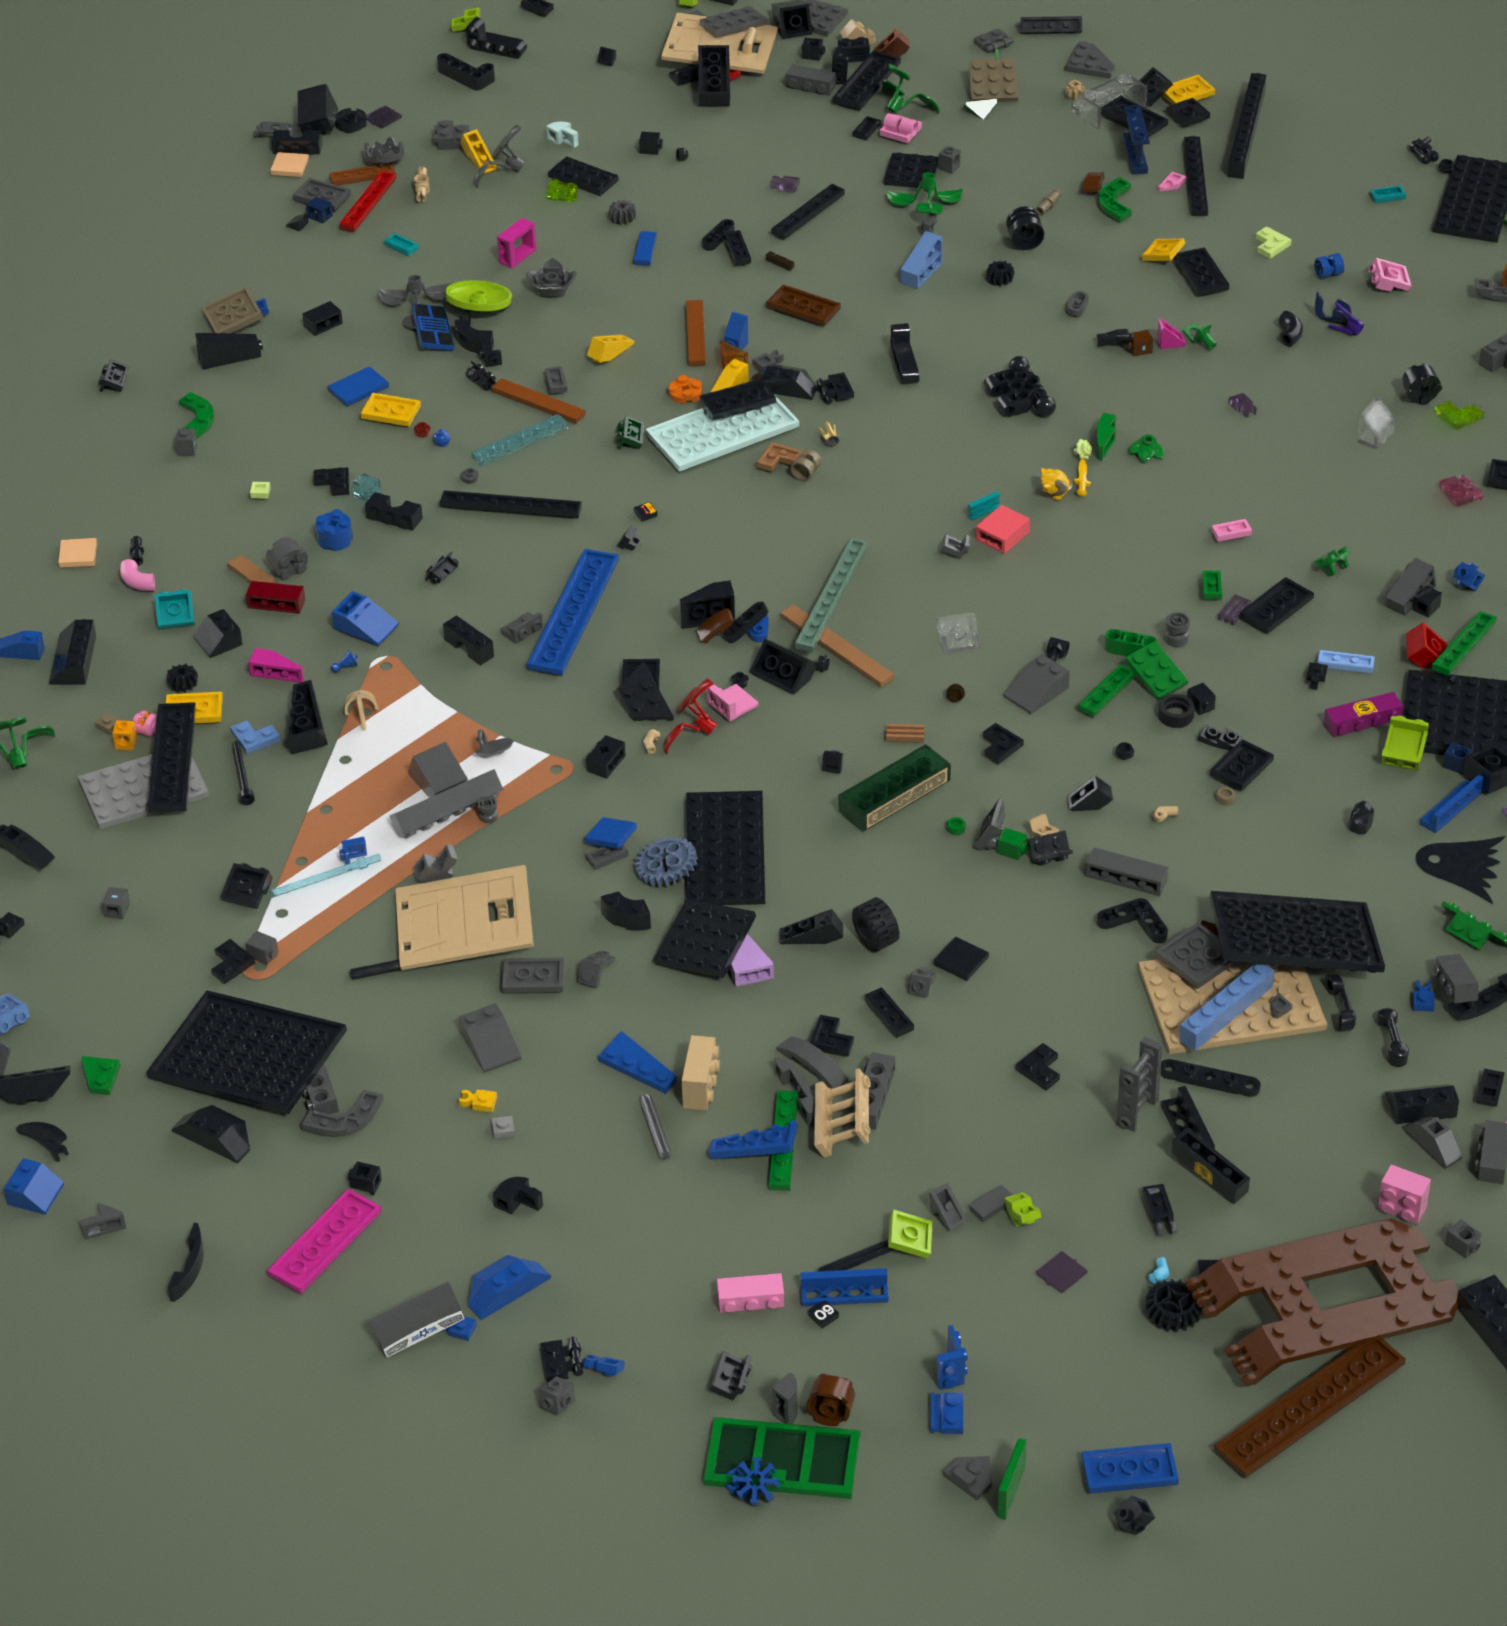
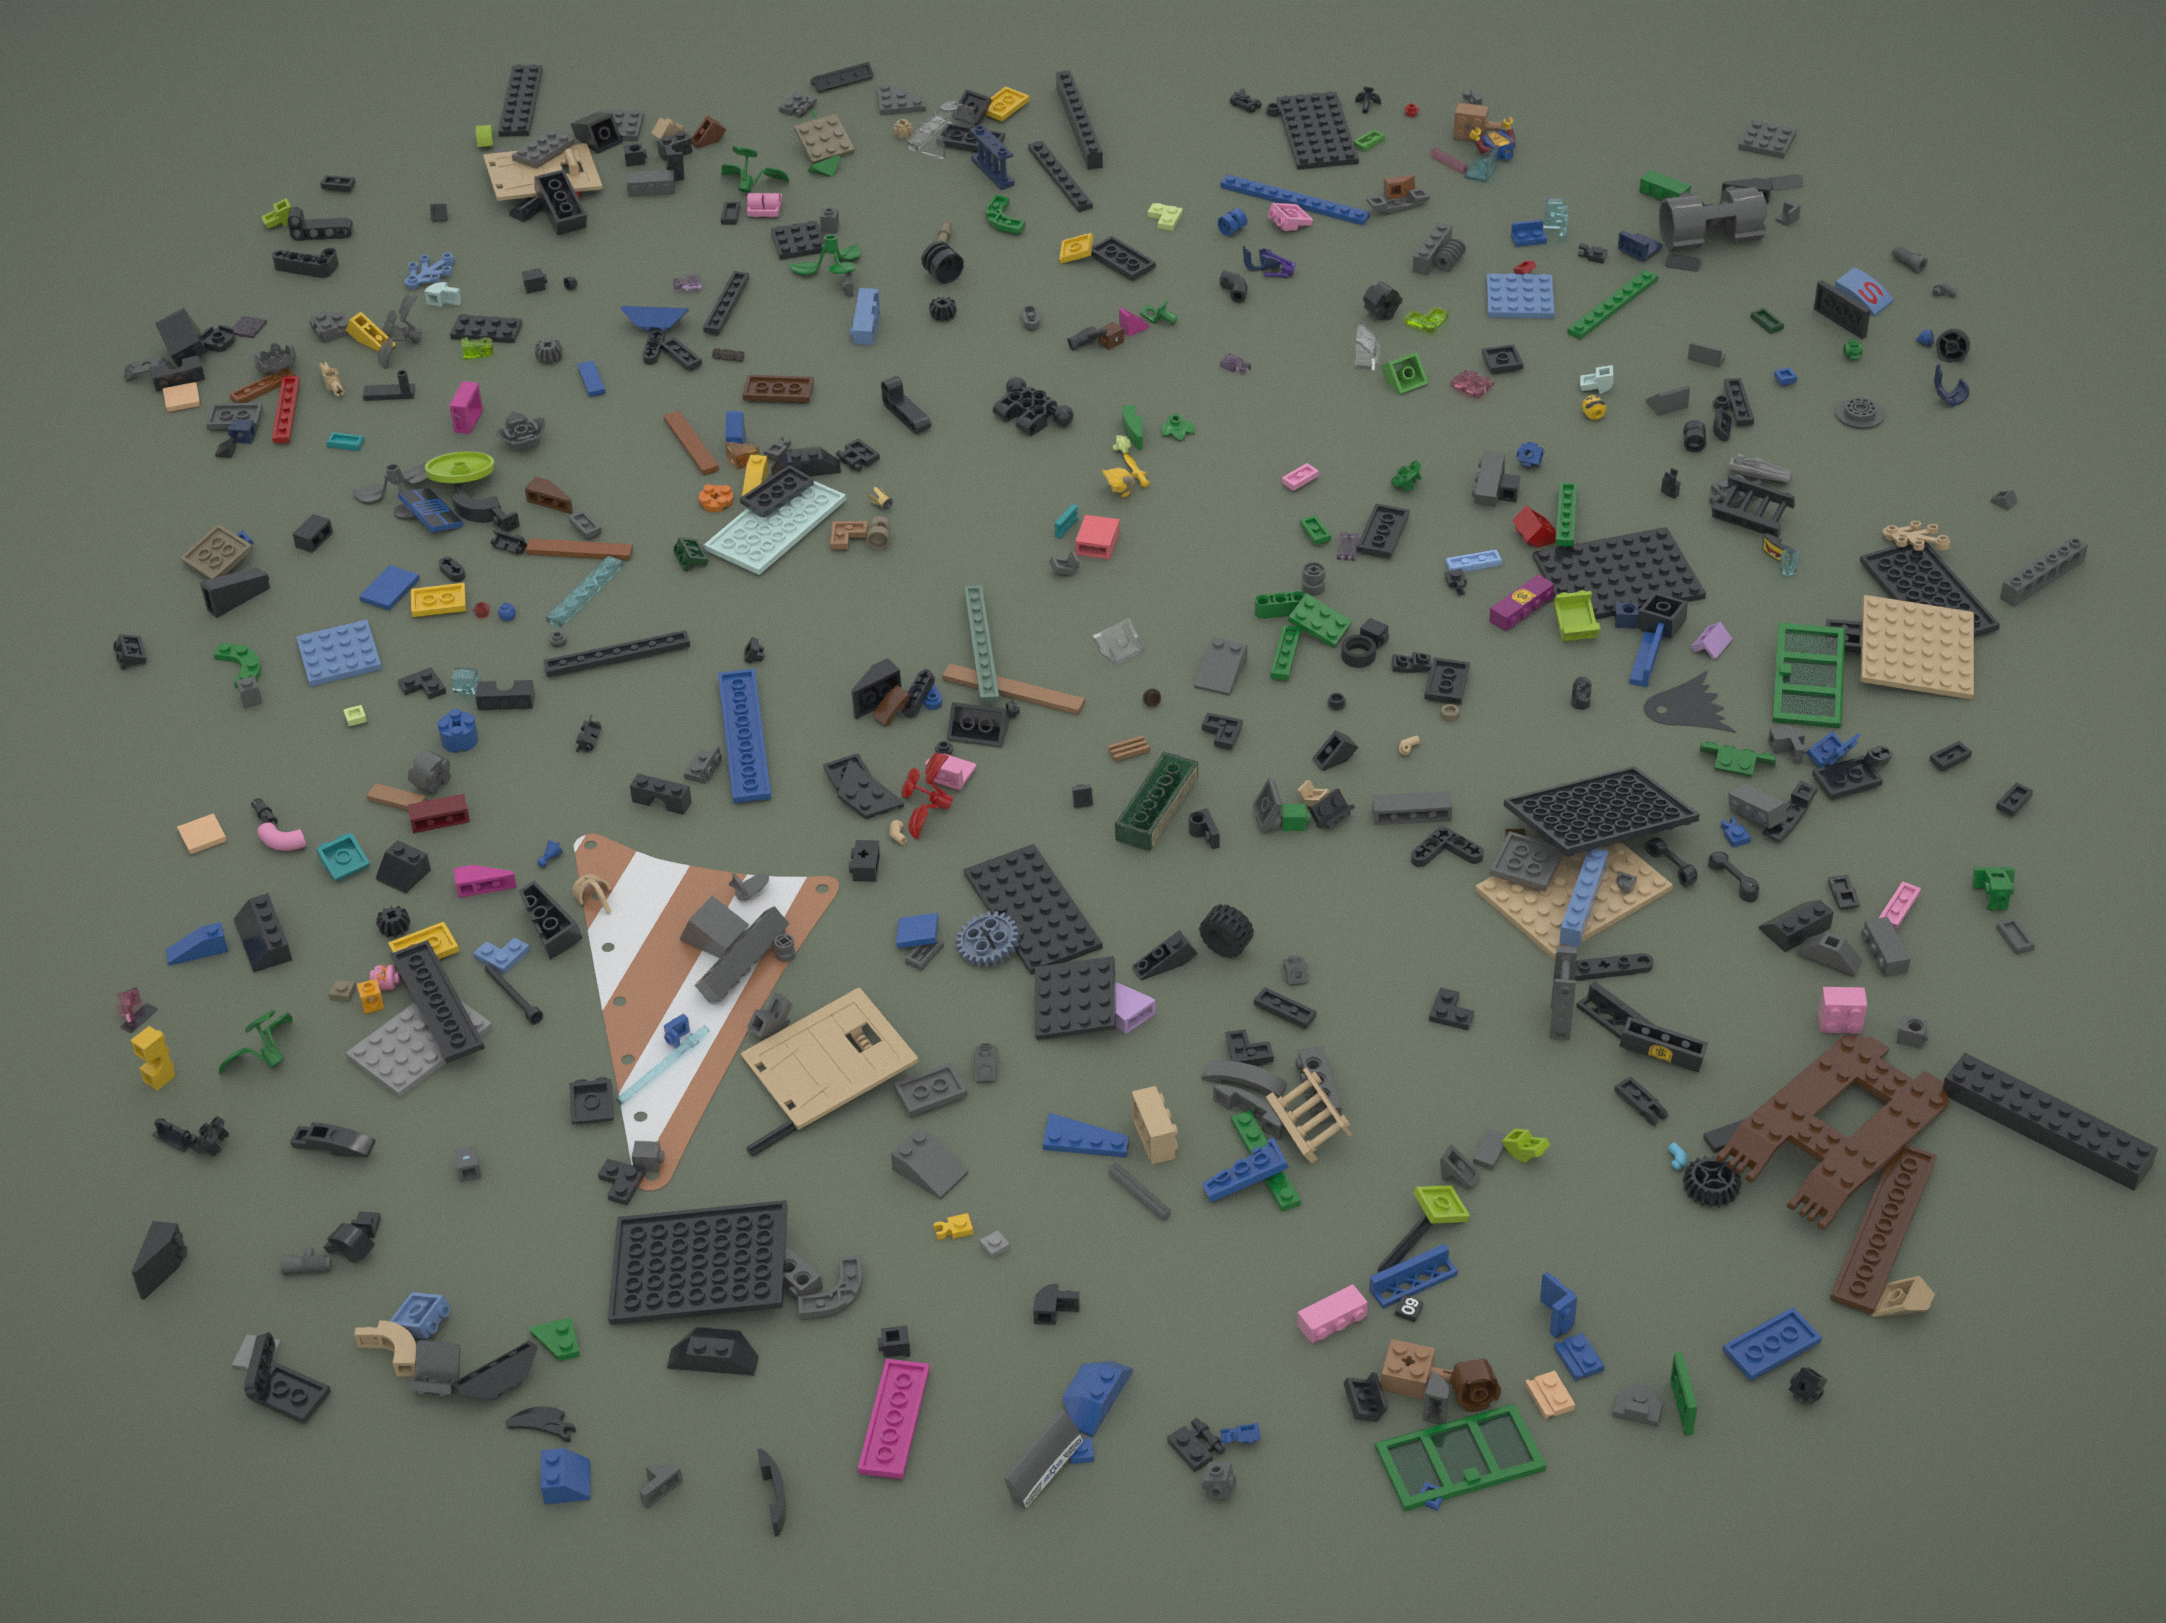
camera: 25 degrees left, 0 degrees up
(281, 431) = (338, 653): none -> medium blue plate
(363, 619) = (543, 806): blue slope -> none
(421, 385) = (452, 569): none -> black beam
(465, 210) = (391, 392): none -> black piece
(538, 341) = (547, 494): none -> reddish brown slope
(549, 113) = (414, 281): none -> medium blue plant
(608, 347) = (617, 480): yellow slope -> none
(625, 912) = (983, 999): black brick -> none
(645, 511) = (751, 621): black tile -> none
(732, 206) = (654, 316): none -> blue wedge
(764, 1480) = (1451, 1491): blue gear -> none
(781, 1358) = (1410, 1369): none -> medium nougat brick
(866, 80) = (703, 170): black plate -> none
(898, 1435) = (1550, 1395): none -> light nougat plate
(922, 824) = (1202, 825): none -> black plate
(956, 826) = (1230, 818): green tile -> none
(961, 958) = (1315, 936): black tile -> none
(1057, 648) = (1216, 628): black axle -> none
(1061, 1272) = (1592, 1189): clear purple piece -> none
(1092, 182) = (973, 206): reddish brown slope -> none
(1172, 182) = (1042, 187): bright pink tile -> none
(1188, 112) = (1017, 122): black plate -> none
(1282, 1474) = (1904, 1297): none -> tan slope
(1388, 194) = (1238, 147): teal tile -> none
(1399, 461) = (1405, 373): none -> bright green slope
(1413, 264) = (1305, 202): none -> blue plate

